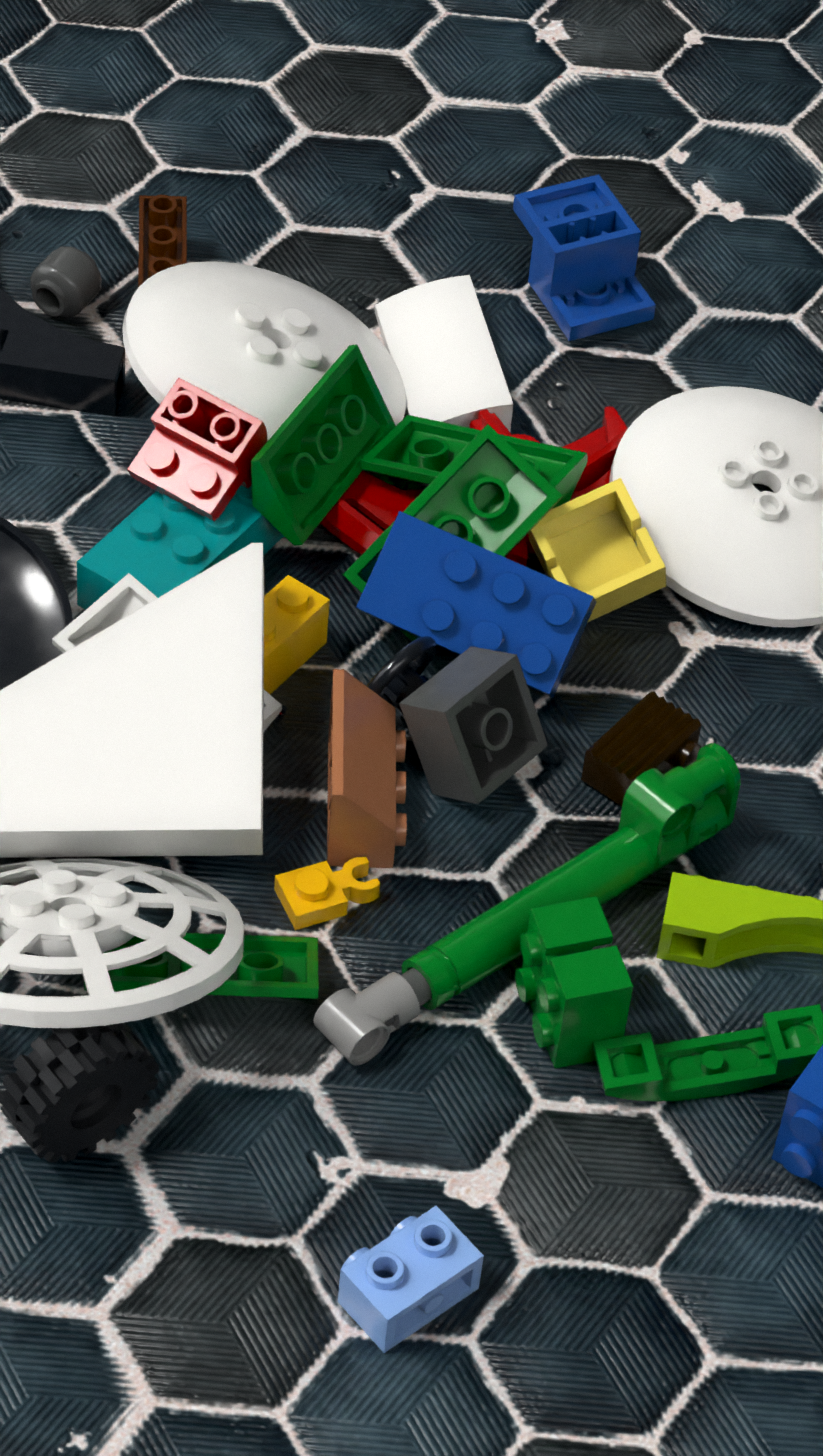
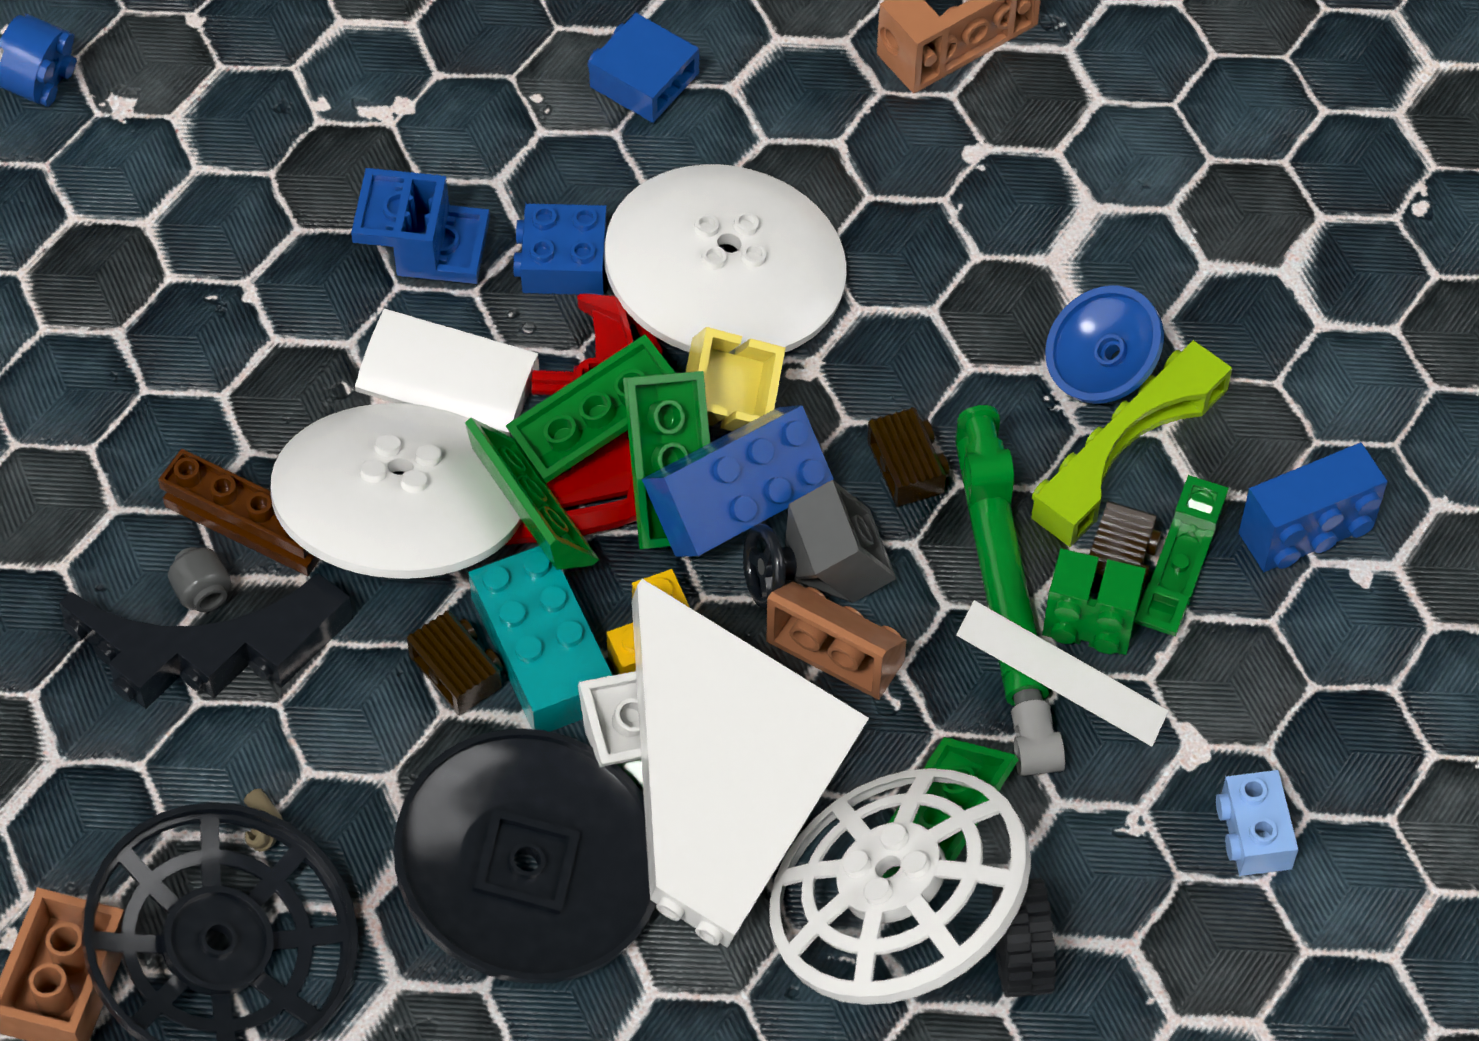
camera: 55 degrees left, 10 degrees up
(101, 496) = (455, 662): none -> dark brown brick
(199, 450) = (499, 575): brick -> none
(319, 894) = (906, 715): yellow plate -> none
(466, 1001) = (1062, 673): none -> white sticker
(652, 367) = (561, 249): none -> blue brick
(682, 992) = (1124, 537): none -> dark brown brick

